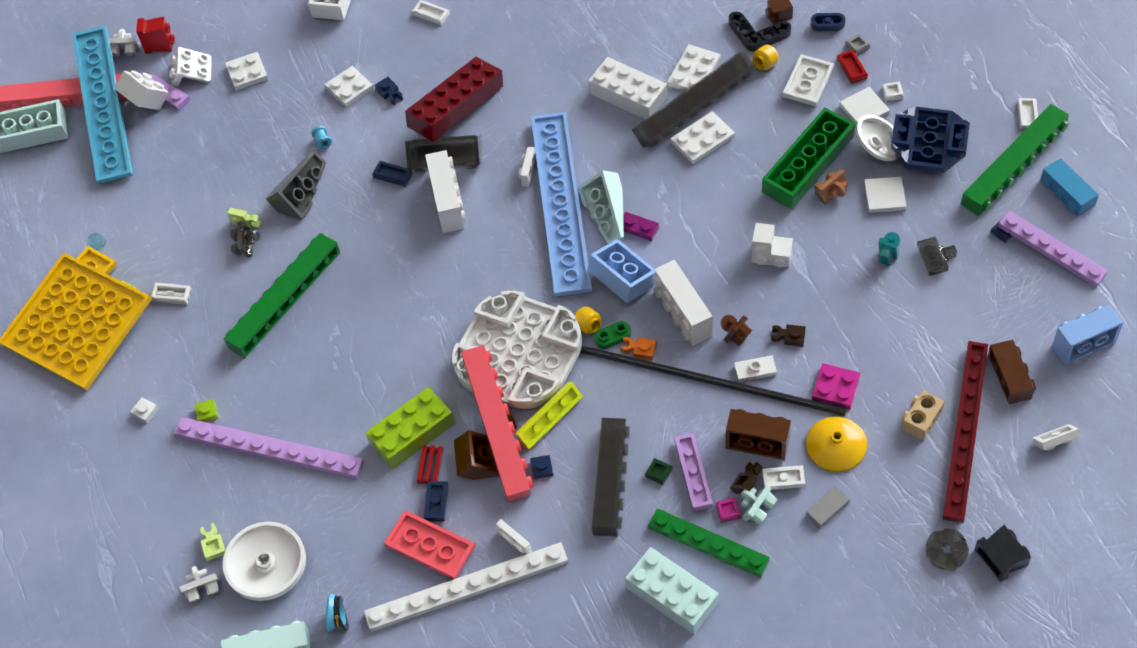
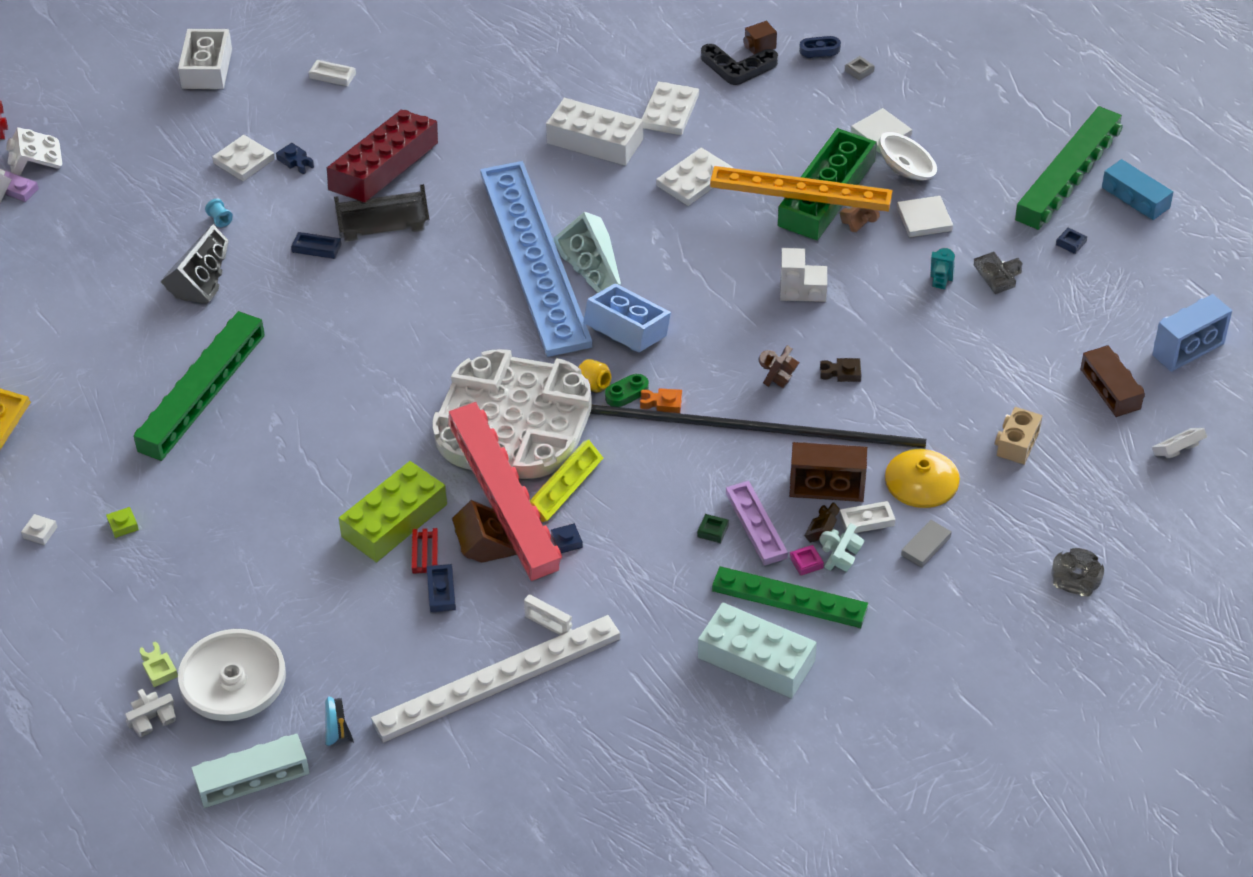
camera: 15 degrees left, 10 degrees down
(171, 296) = (45, 398): white tile -> none
(237, 215) = (130, 307): yellowish green plate -> none
(246, 71) = (107, 151): white plate -> none
(246, 238) = (138, 330): clear smoke hips -> none
(269, 447) = (211, 553): lavender plate -> none
(429, 545) = (441, 636): coral plate -> none
(446, 191) = (390, 254): white brick -> none
(528, 161) = (486, 216): white plate -> none
(609, 477) = (655, 540): clear smoke brick -> none
(639, 226) = (638, 274): magenta plate -> none
(683, 303) = (709, 344): white brick -> none
(693, 99) = (676, 135): clear smoke brick -> none
(755, 368) = (808, 408): white plate -> none
(765, 57) = (753, 87): yellow head -> none
(783, 165) = (801, 188): none -> light orange plate
(808, 80) = (809, 107): white plate -> none
(836, 386) = (909, 416): dark pink plate -> none
(852, 66) = (858, 90): red tile -> none
(892, 91) = (910, 112): white tile -> none
(929, 138) = (967, 151): dark blue piece -> none
(965, 432) = (1073, 449): dark red plate -> none
(1003, 553) = (1143, 567): black hips -> none
(1026, 112) = (1070, 119): white tile -> none
(1052, 248) = (1132, 253): lavender plate -> none

